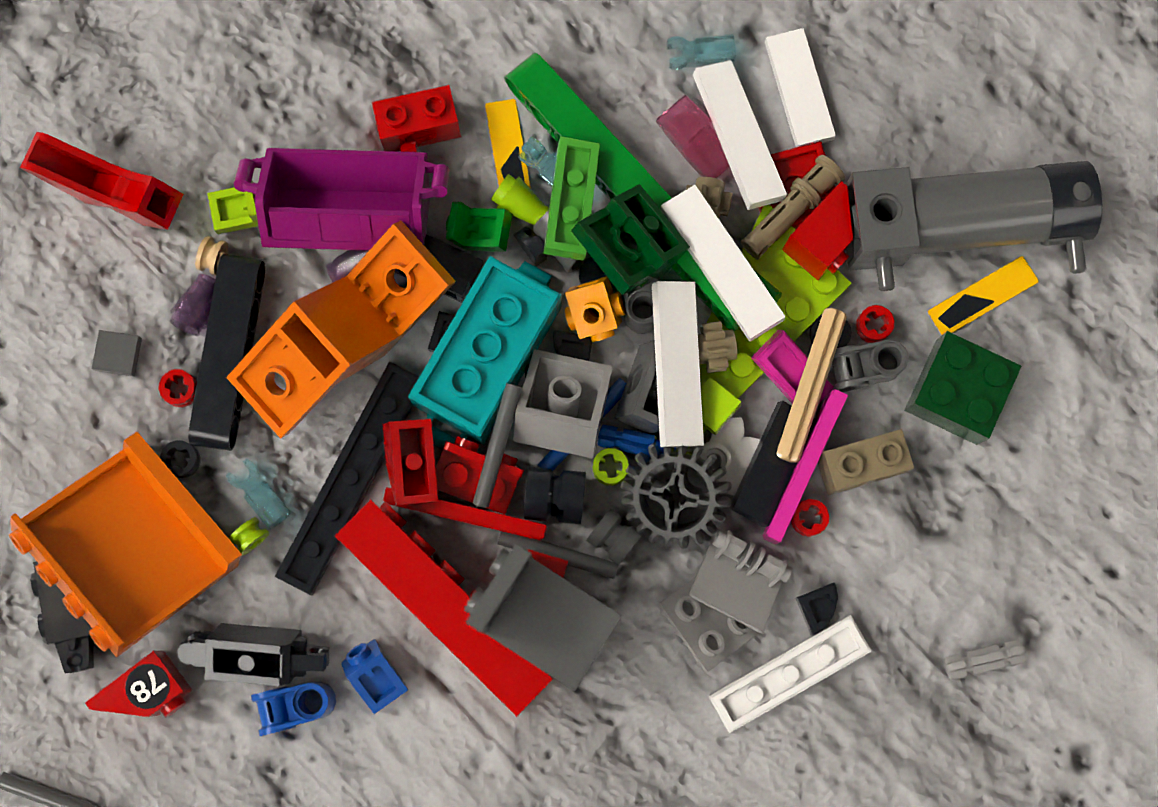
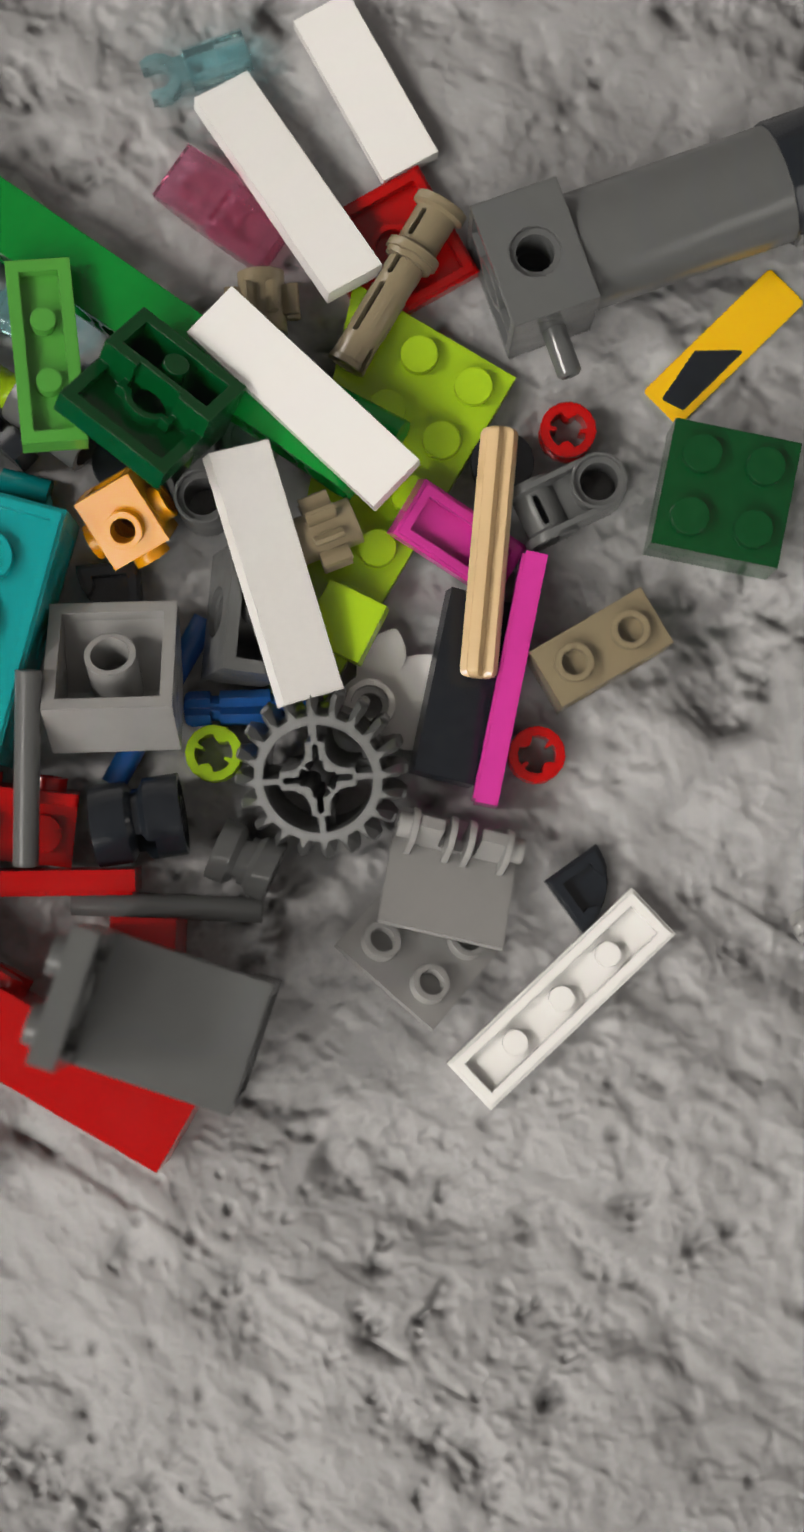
camera: 15 degrees left, 5 degrees up
(823, 235) = (452, 315): red slope -> none

